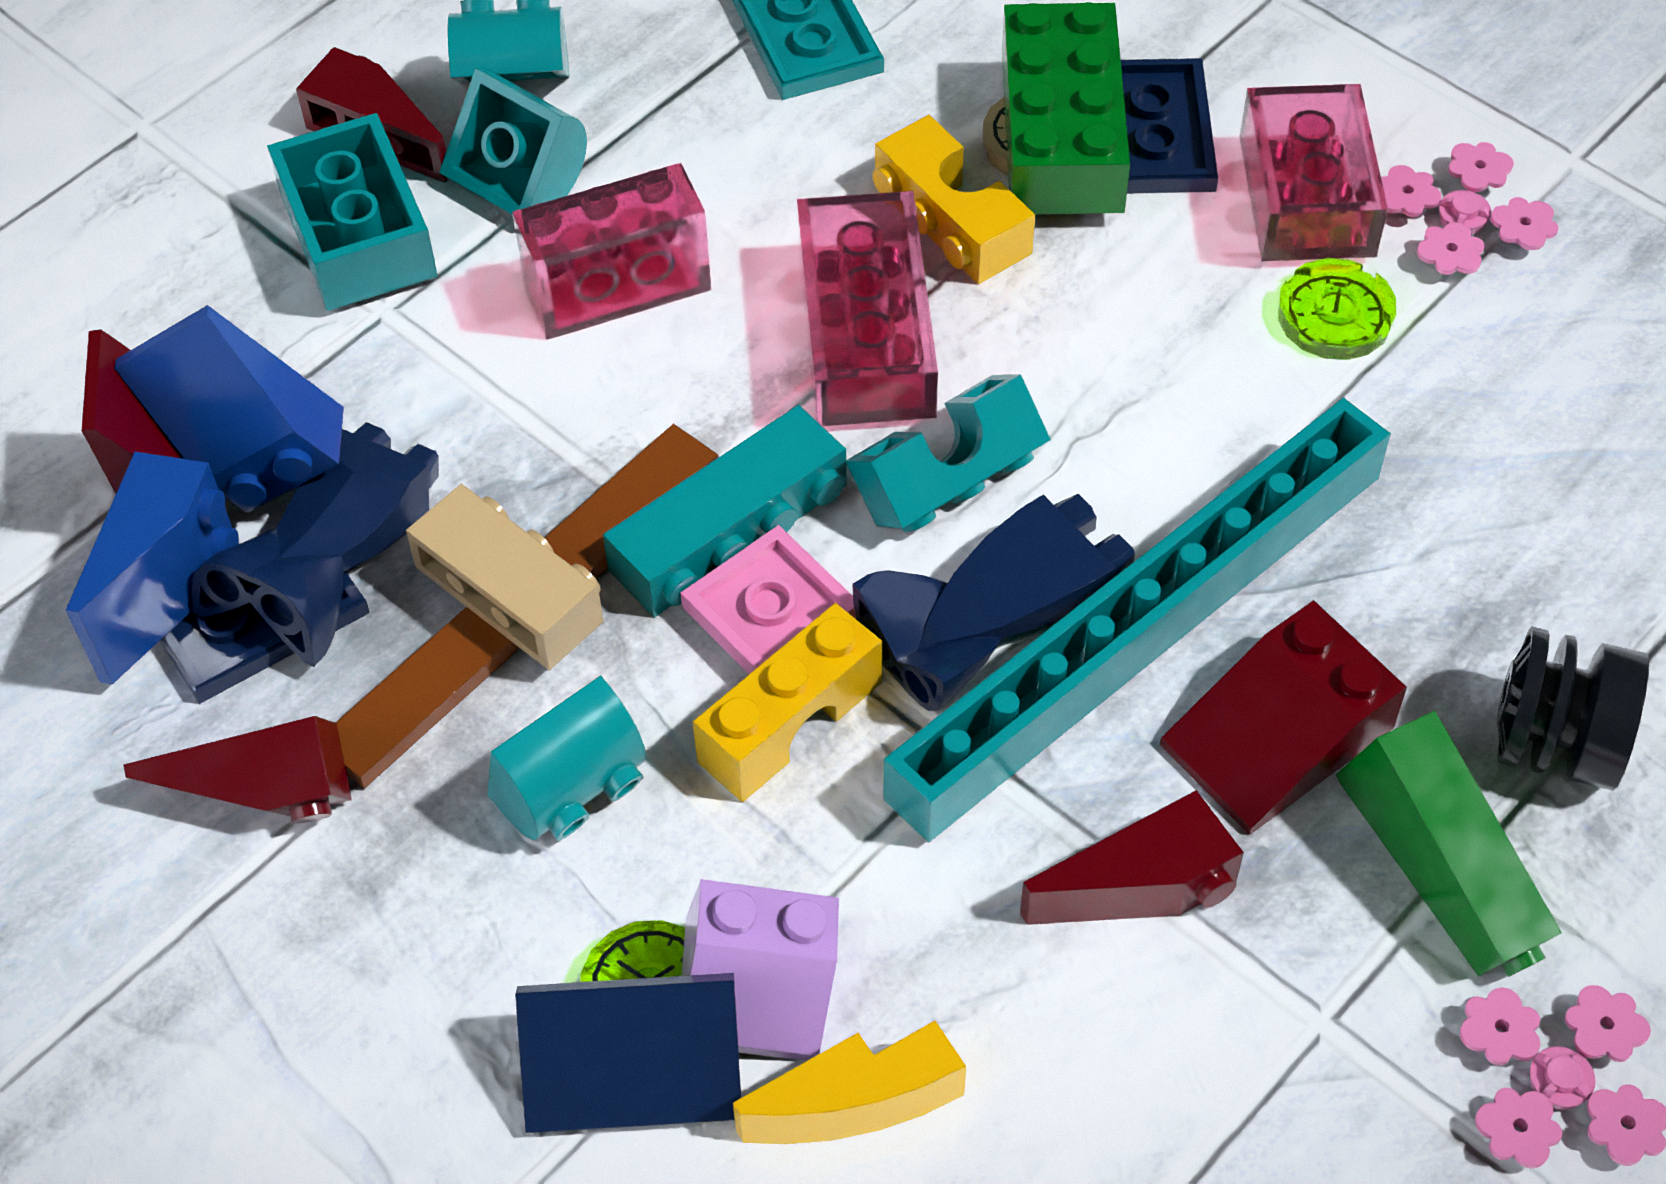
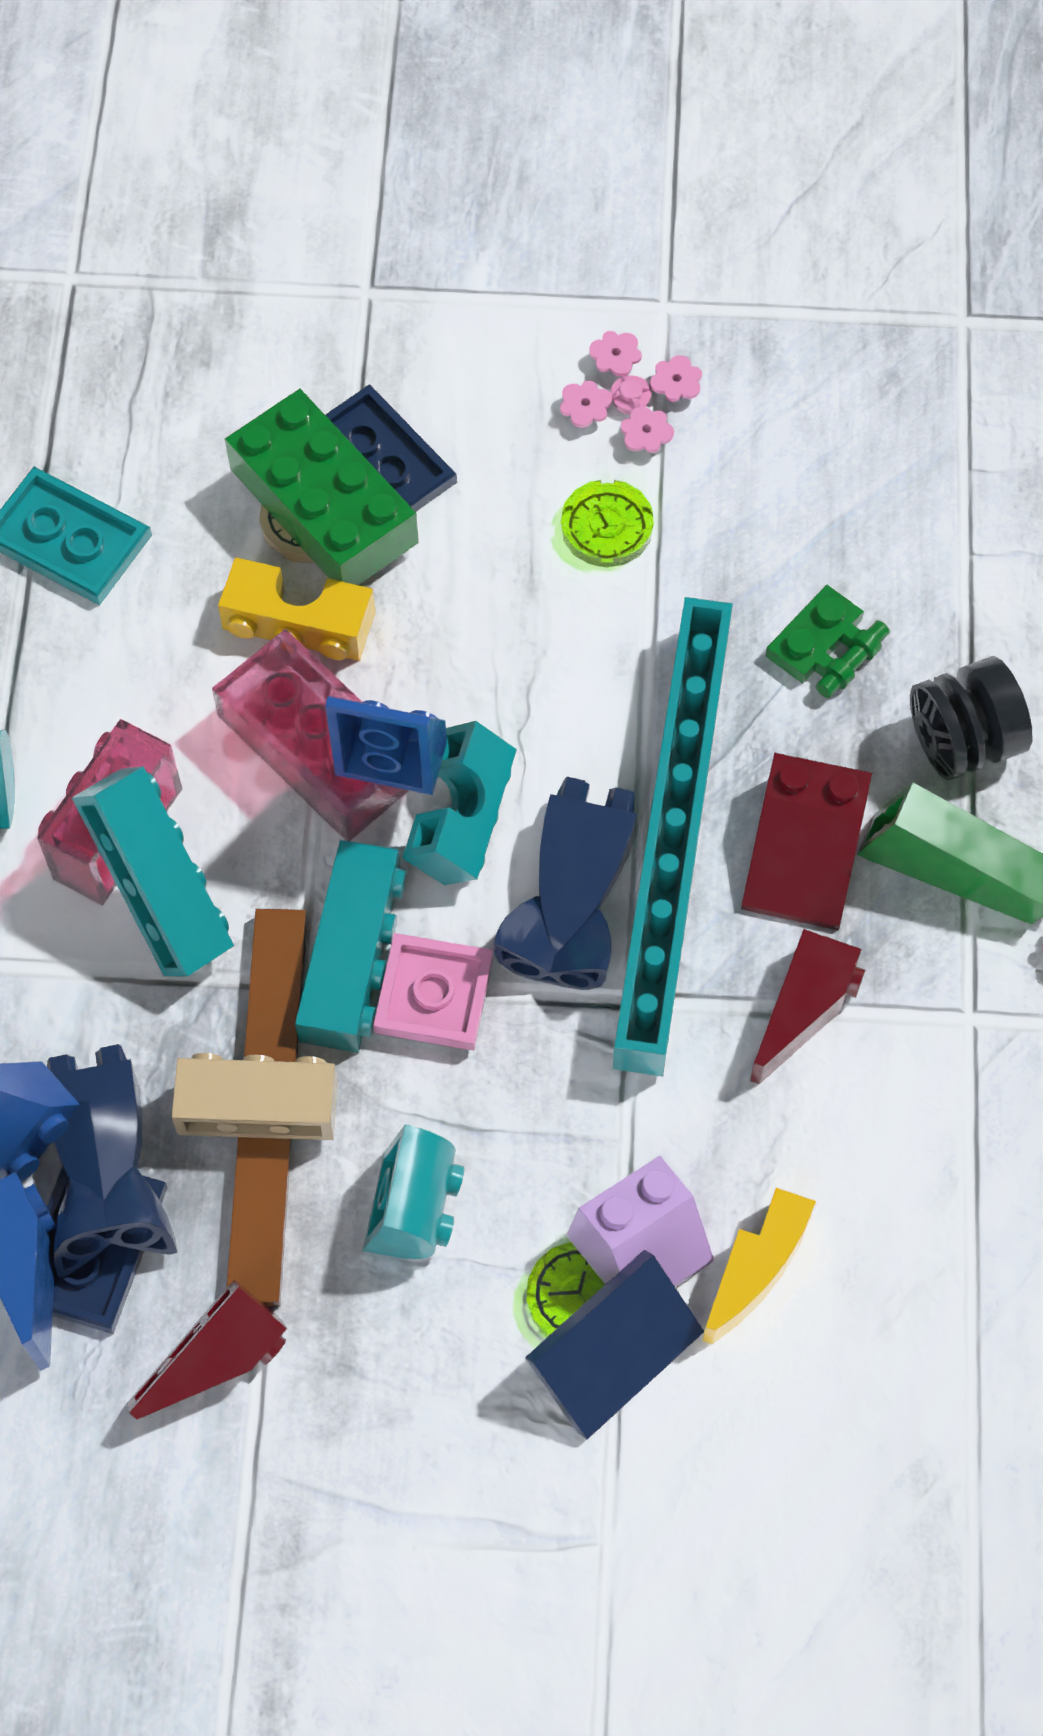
camera: 40 degrees left, 10 degrees up
(592, 307) = (154, 871): none -> teal brick
(751, 727) = (507, 1049): yellow arch -> none
(900, 320) = (386, 744): none -> blue slope
(1312, 172) = (521, 432): clear pink brick -> none
(1477, 537) = (817, 632): none -> green plate

